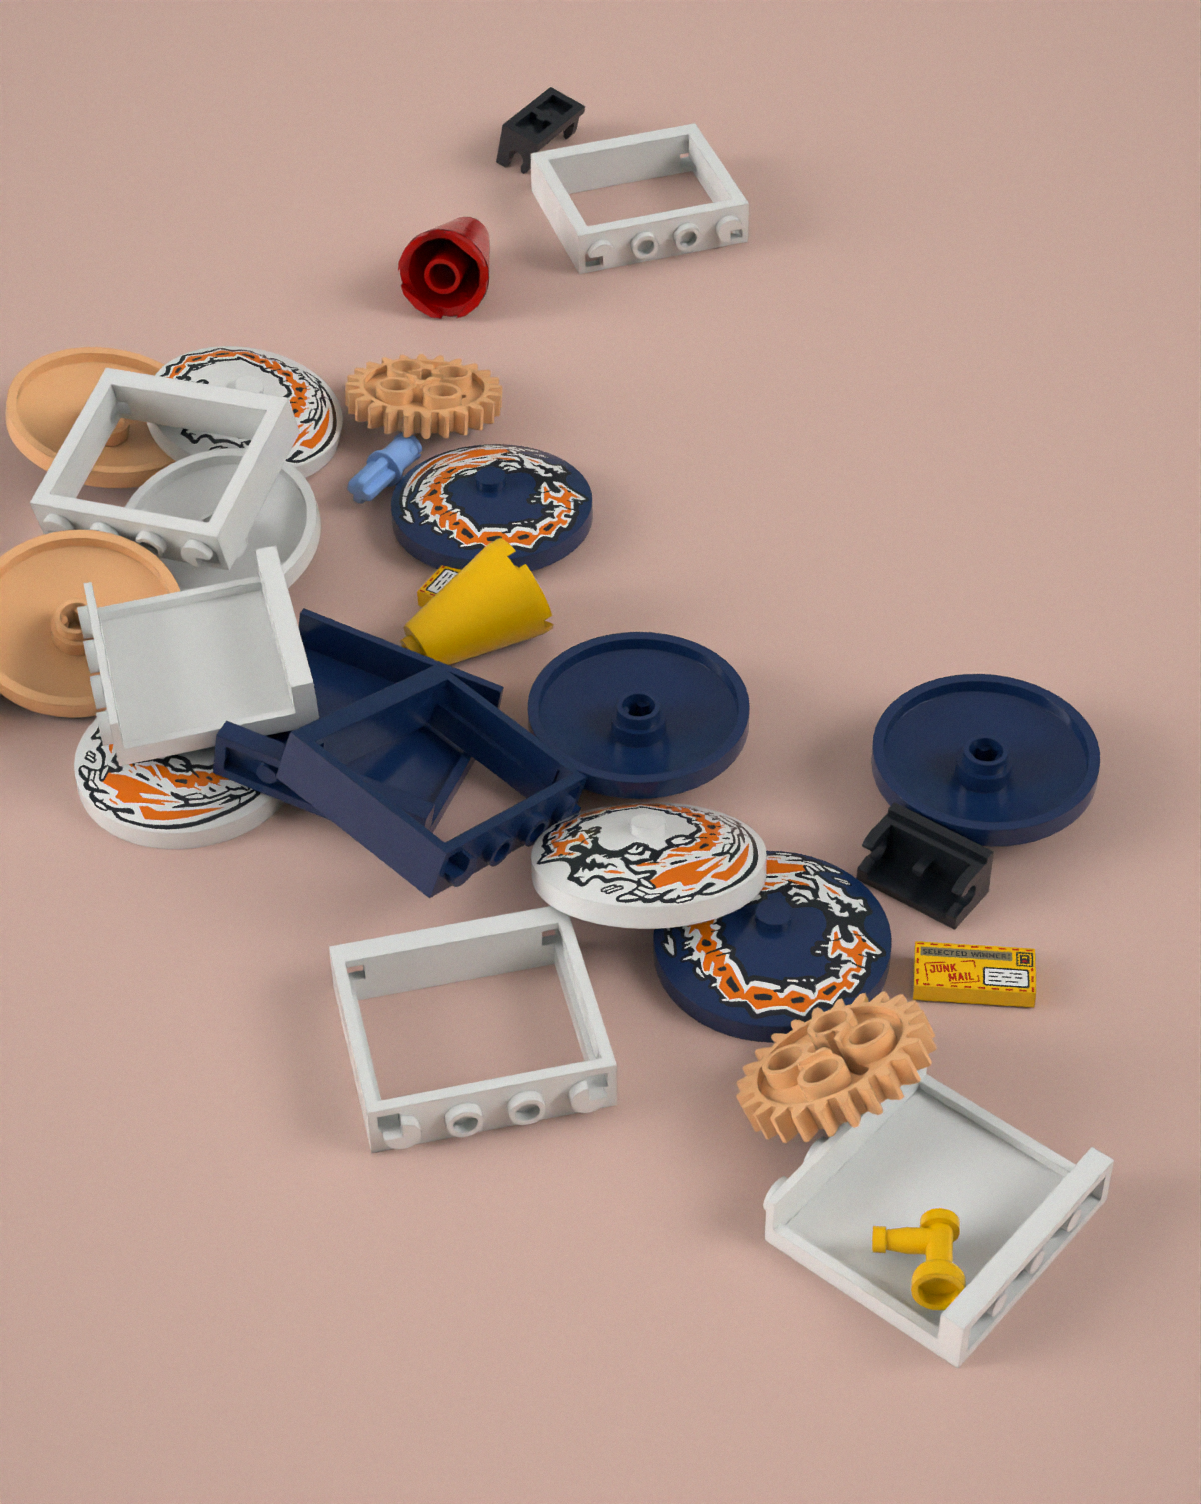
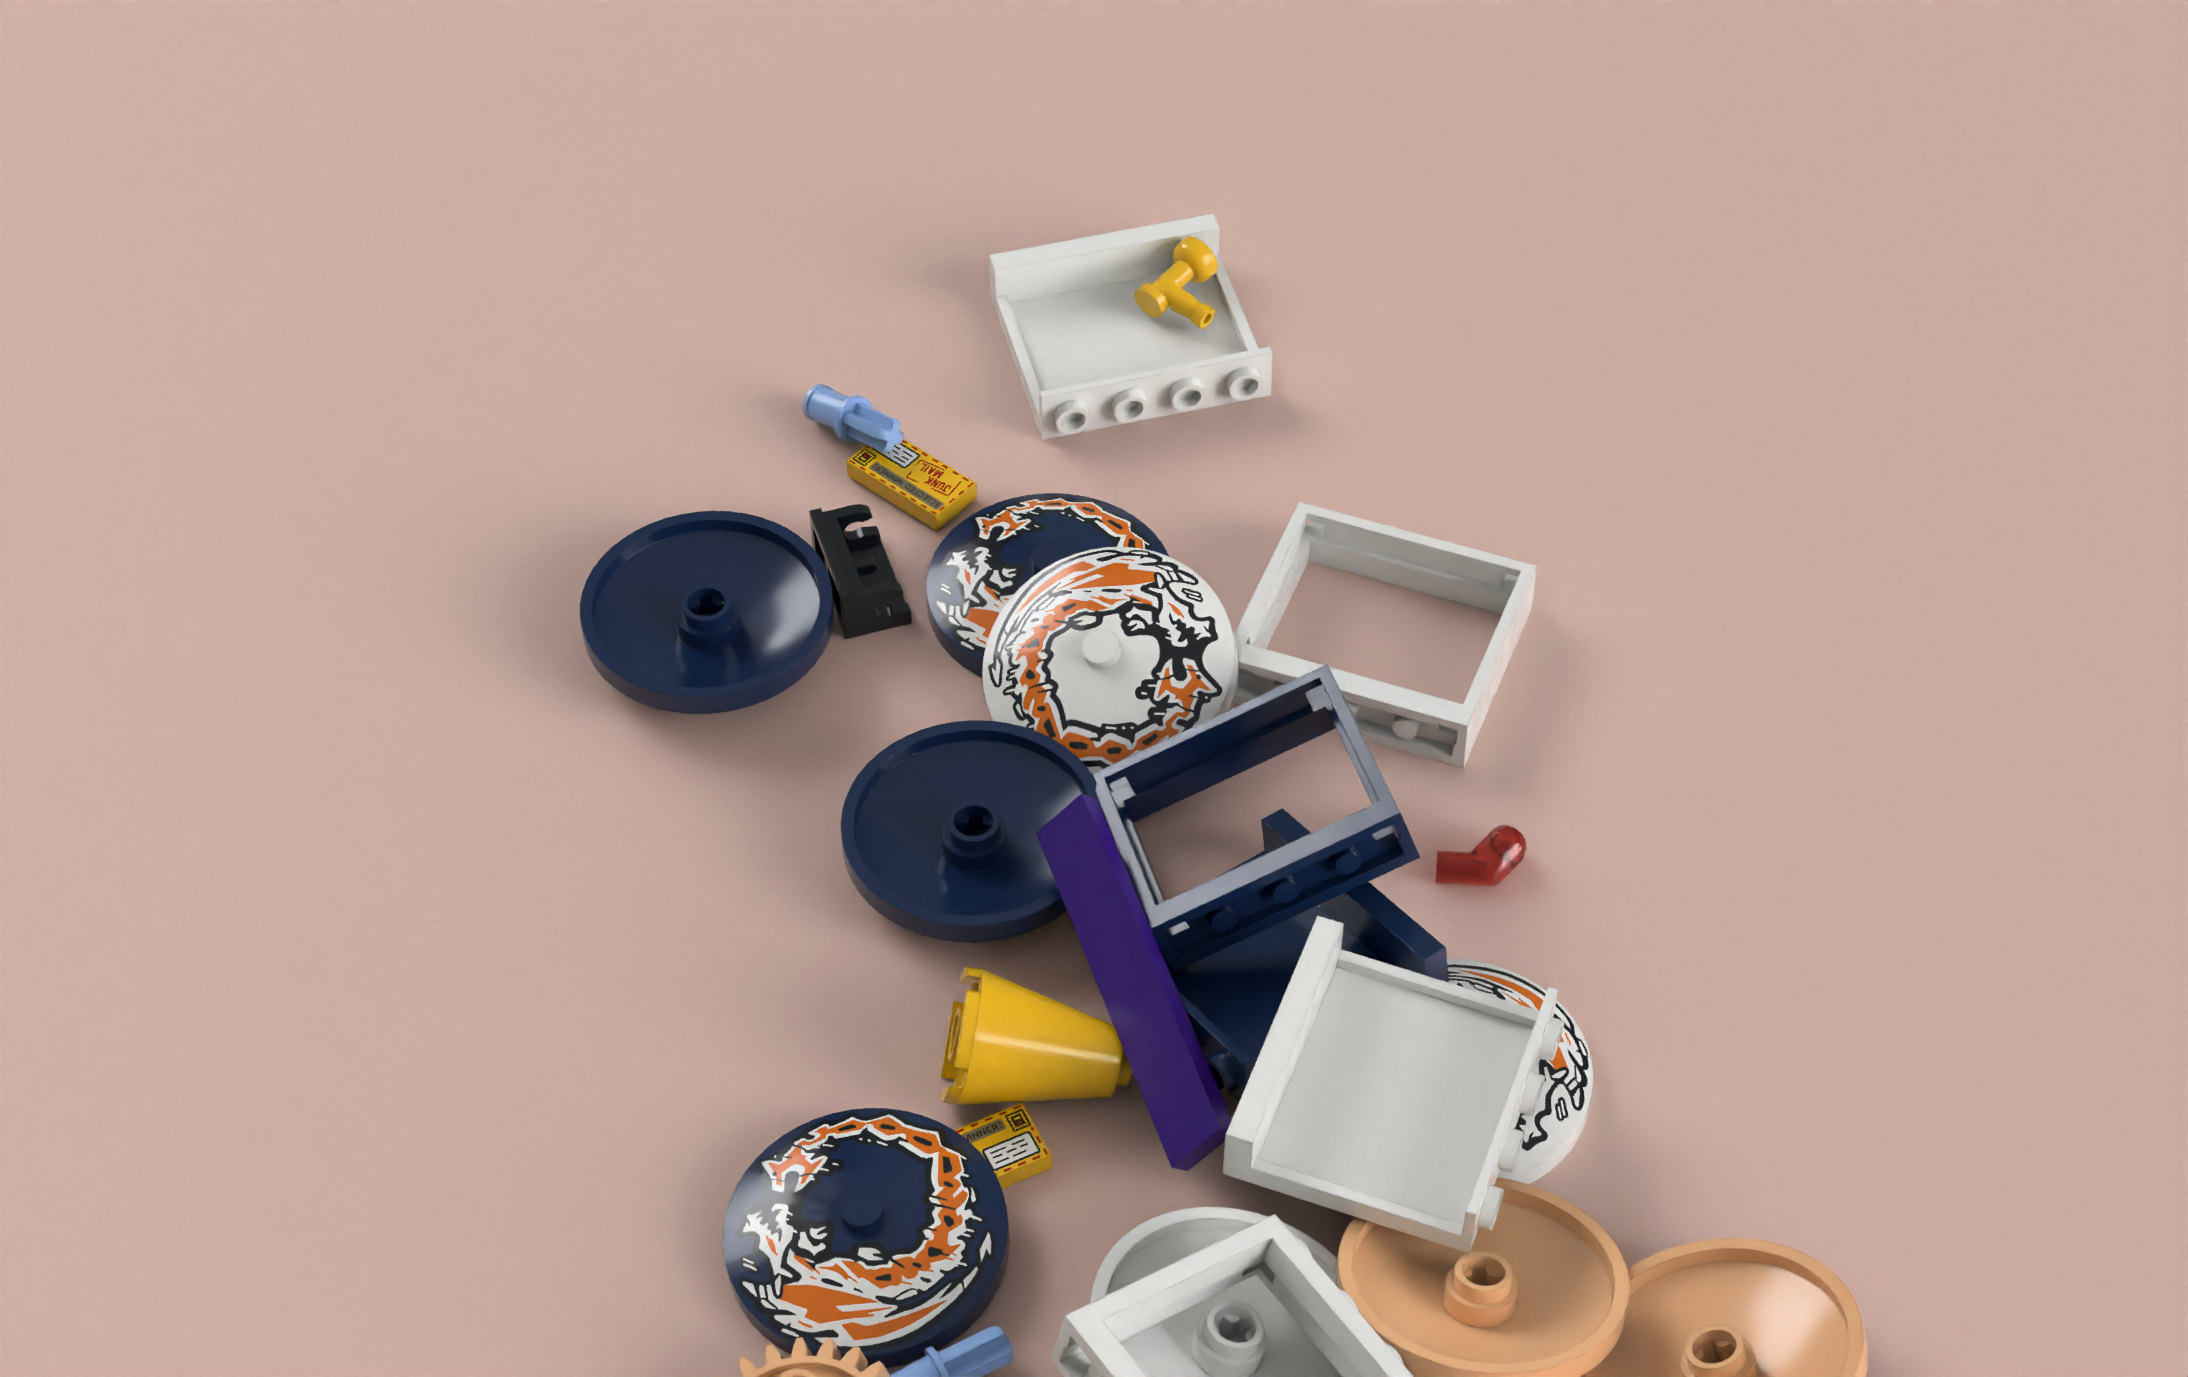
camera: 145 degrees left, 5 degrees up
(262, 900) = (1486, 863): none -> clear red arm
(432, 646) = (1135, 983): none -> dark purple tile
(836, 1067) = (1073, 409): light nougat gear -> none
(1063, 974) = (852, 418): none -> light blue axle

